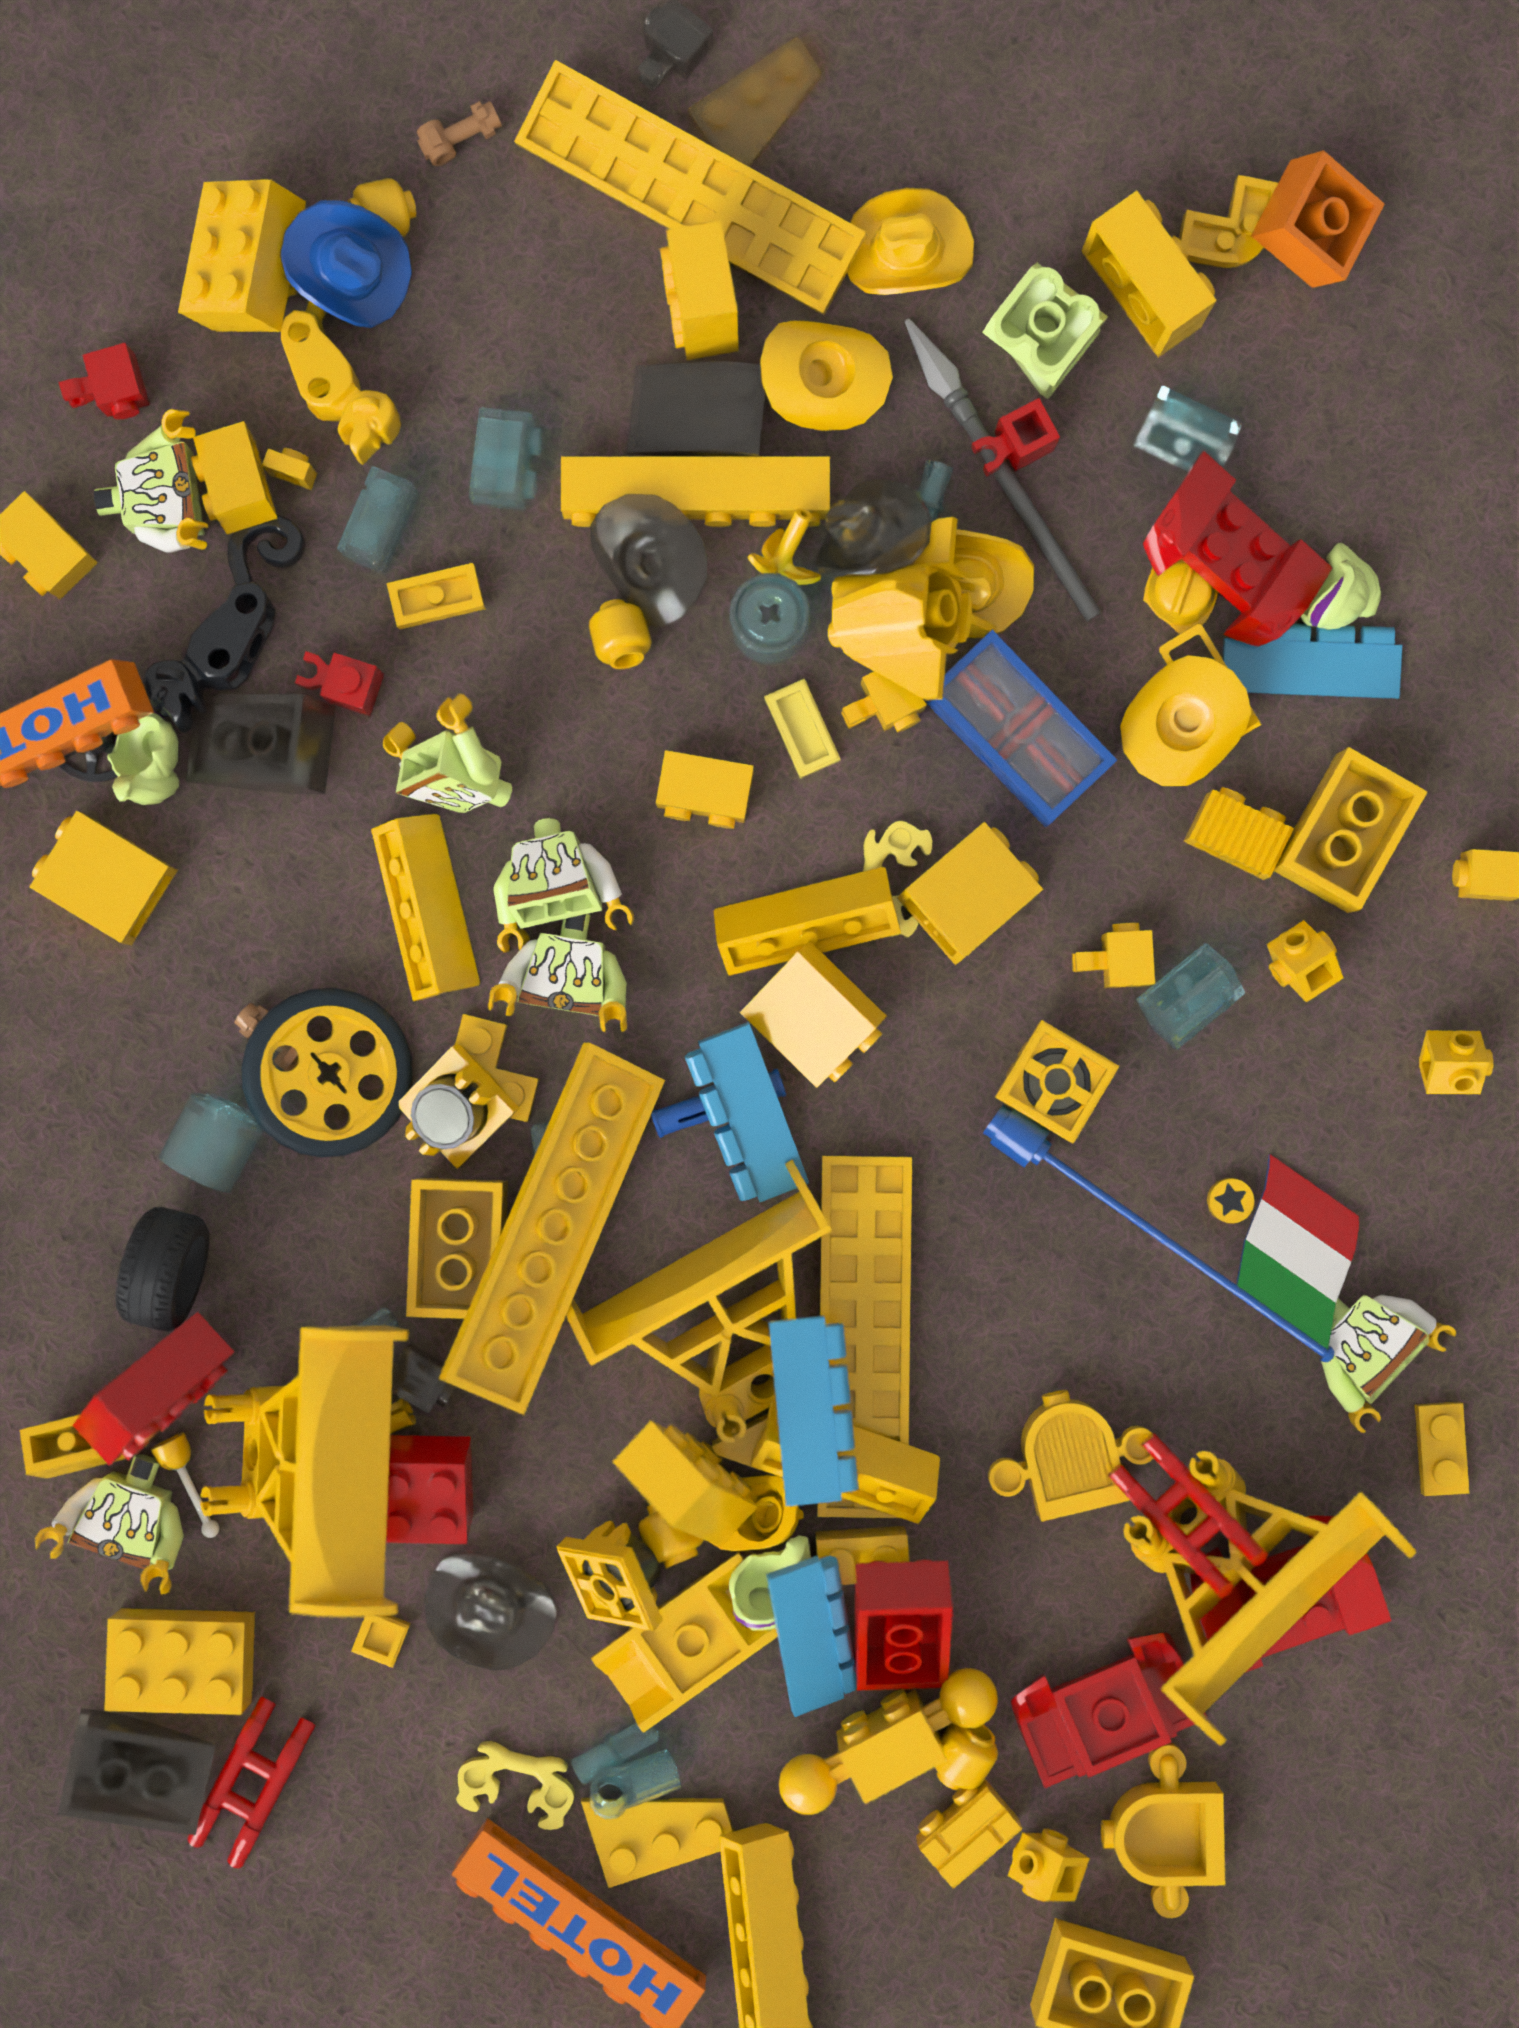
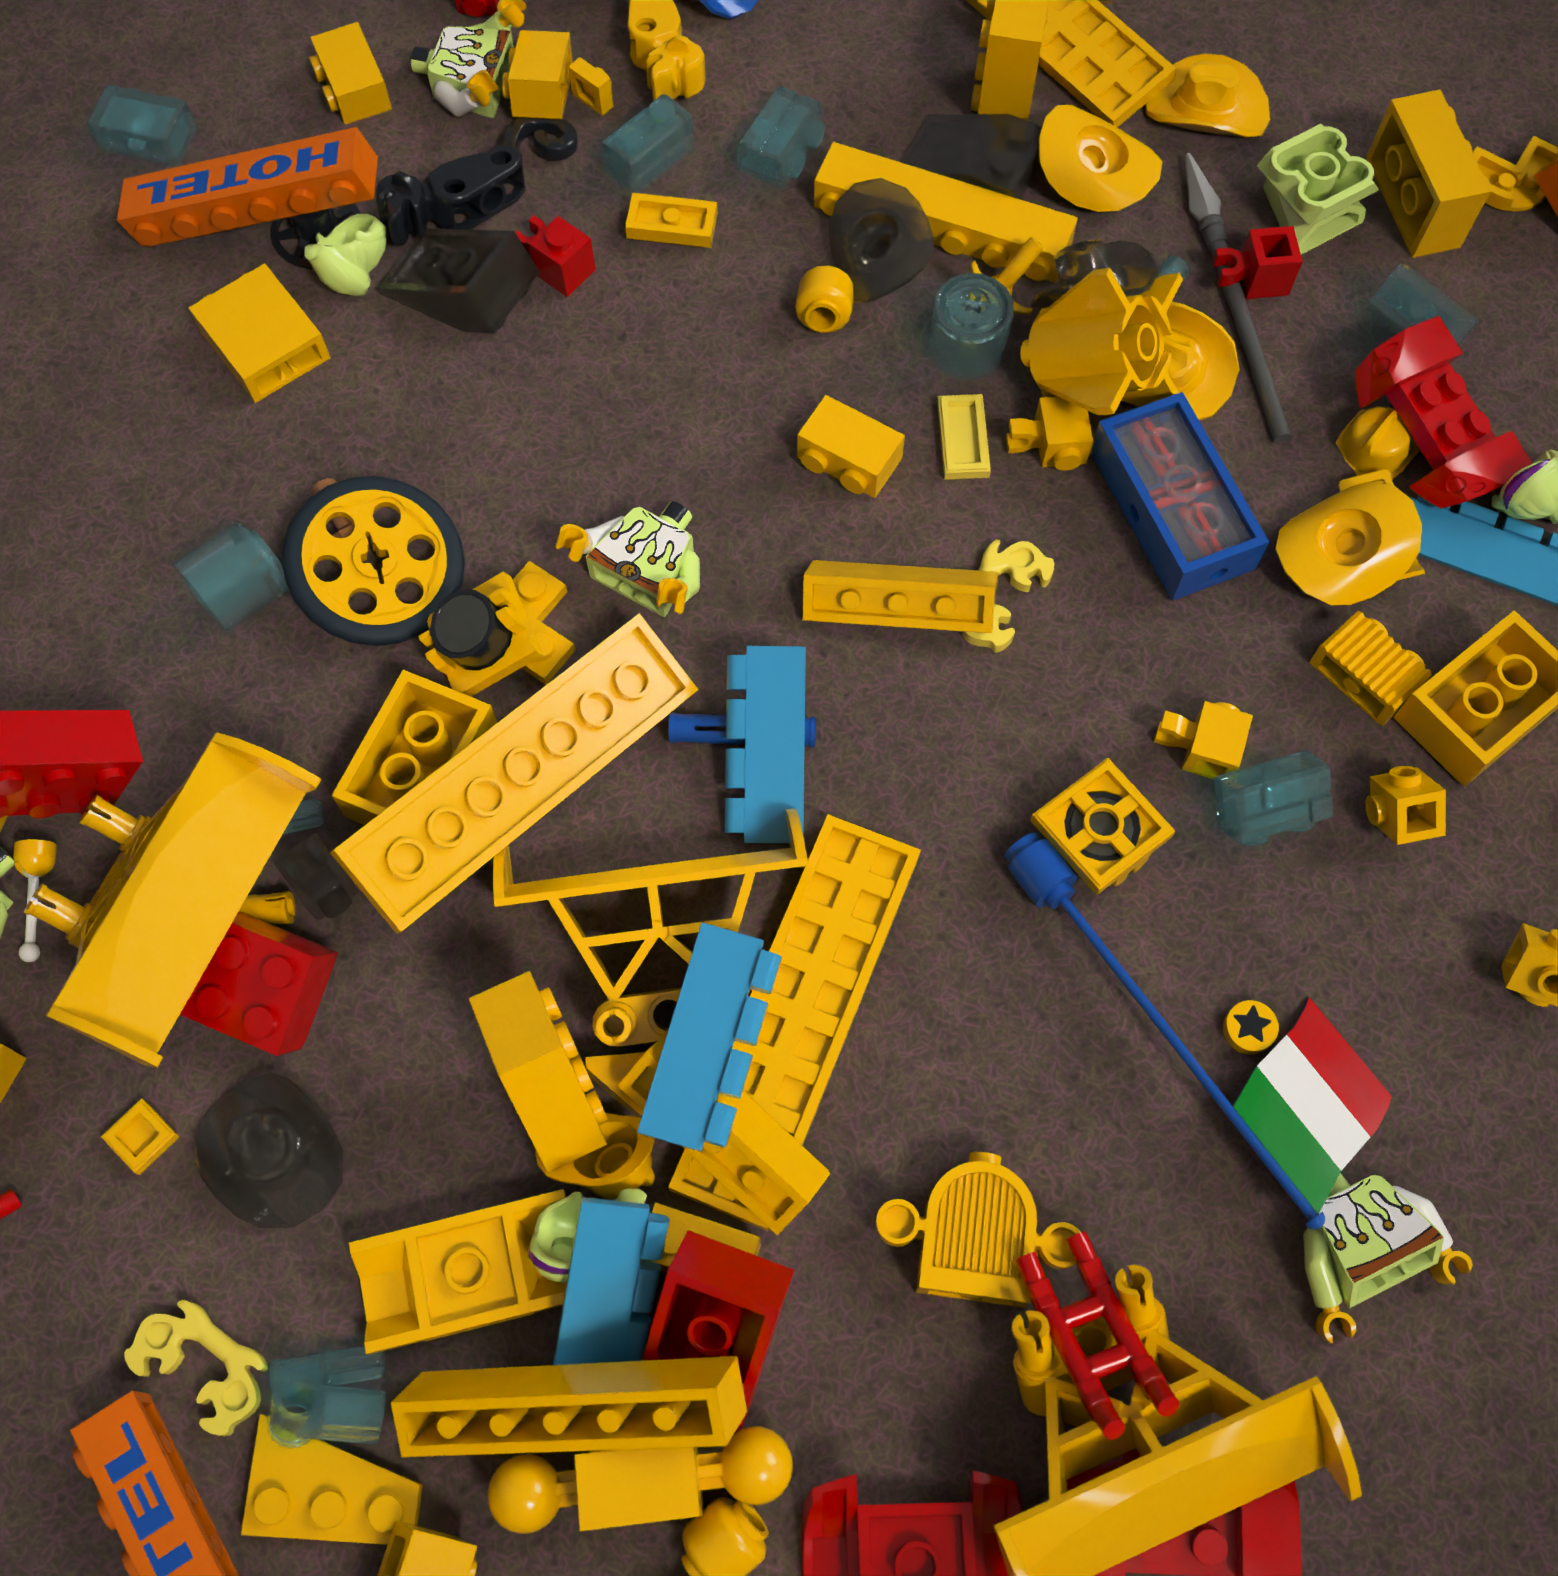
camera: 20 degrees right, 20 degrees down
(162, 1269) = (119, 660): black tyre -> none
(425, 906) = (540, 458): yellow panel -> none
(448, 767) = (621, 338): yellowish green torso -> none
(553, 881) = (668, 468): torso -> none
(614, 1576) = (416, 1158): yellow piece -> none
(666, 1542) = (498, 1143): yellow head -> none
(815, 1016) = (874, 674): yellow brick -> none
(819, 1720) = (571, 1407): none -> yellow brick
(971, 892) = (1075, 622): yellow brick -> none
(1442, 1448) = (1418, 1402): yellow plate -> none

